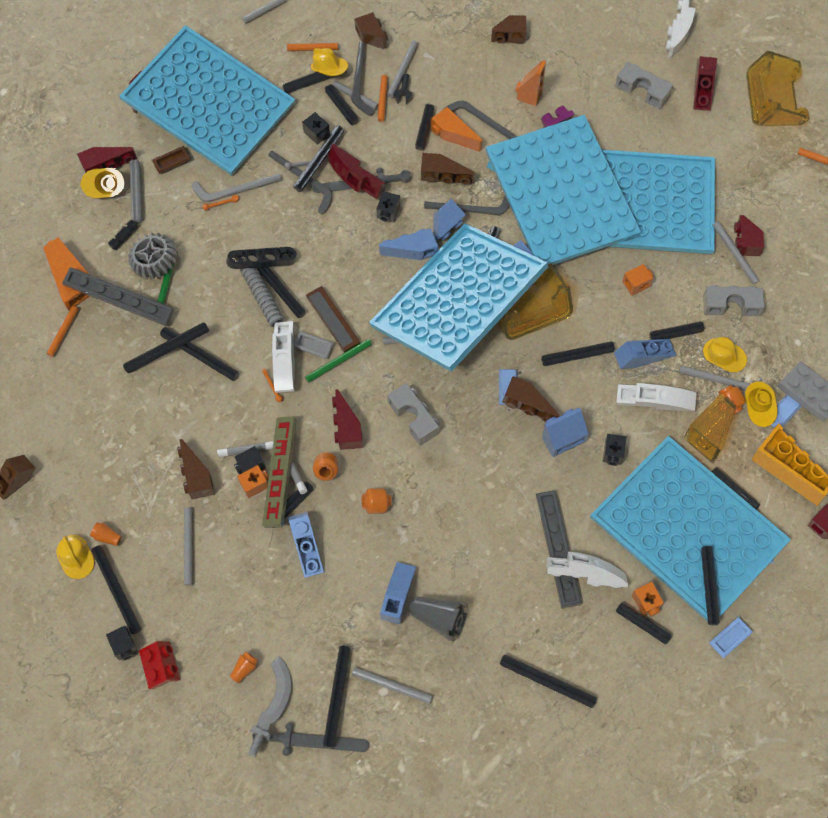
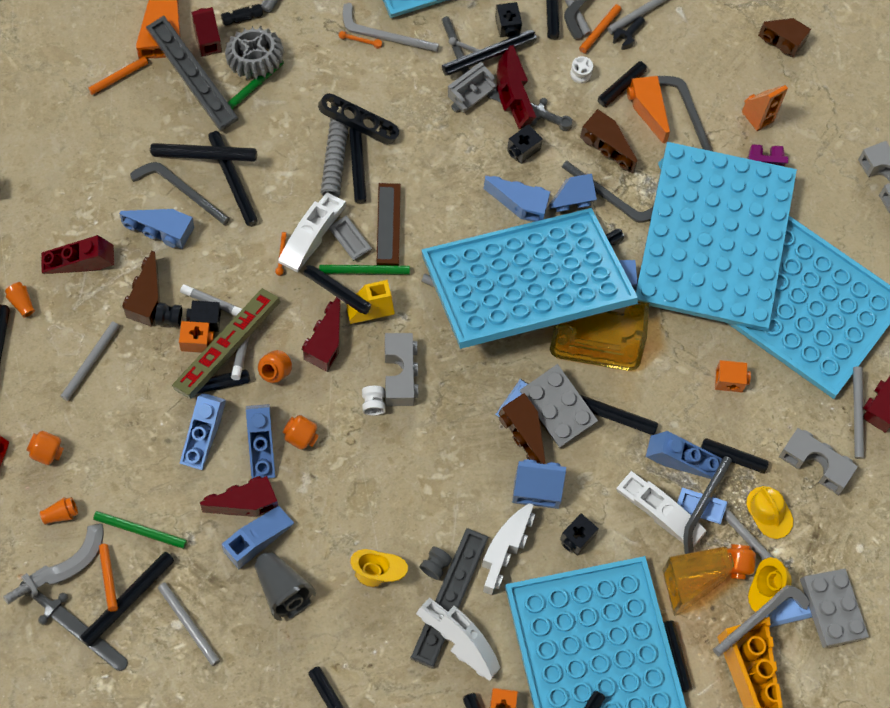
camera: 25 degrees right, 0 degrees up
(107, 261) = (206, 31): none -> dark red slope
(127, 477) = (80, 256): none -> dark red slope
(142, 379) = (156, 167): none -> dark grey piece
(174, 416) = (164, 224): none -> medium blue slope
(200, 628) = (45, 448): none -> orange head
(223, 477) = (168, 315): none -> black wheel
(310, 642) = (139, 529): none -> green bar
(313, 690) = (108, 577): none -> orange bar
(324, 189) = (471, 87): none -> light grey hinge
(331, 385) = (337, 289): none -> black axle
(351, 524) = (260, 441): none -> medium blue slope
(361, 380) = (379, 297): none -> yellow slope
(372, 572) = (245, 500): none -> dark red slope
(392, 129) = (581, 64): none -> white wheel
(410, 446) = (373, 400): none -> white wheel
(495, 560) = (375, 567): none -> yellow piece
(533, 531) = (435, 563): none -> dark grey wheel
(541, 369) = (559, 405): none -> light grey plate
(570, 484) = (508, 539): none -> white slope
(681, 378) = (714, 511): none -> light blue tile
(682, 374) = (703, 502): none -> dark grey piece
(779, 398) = (786, 592): none -> light grey piece

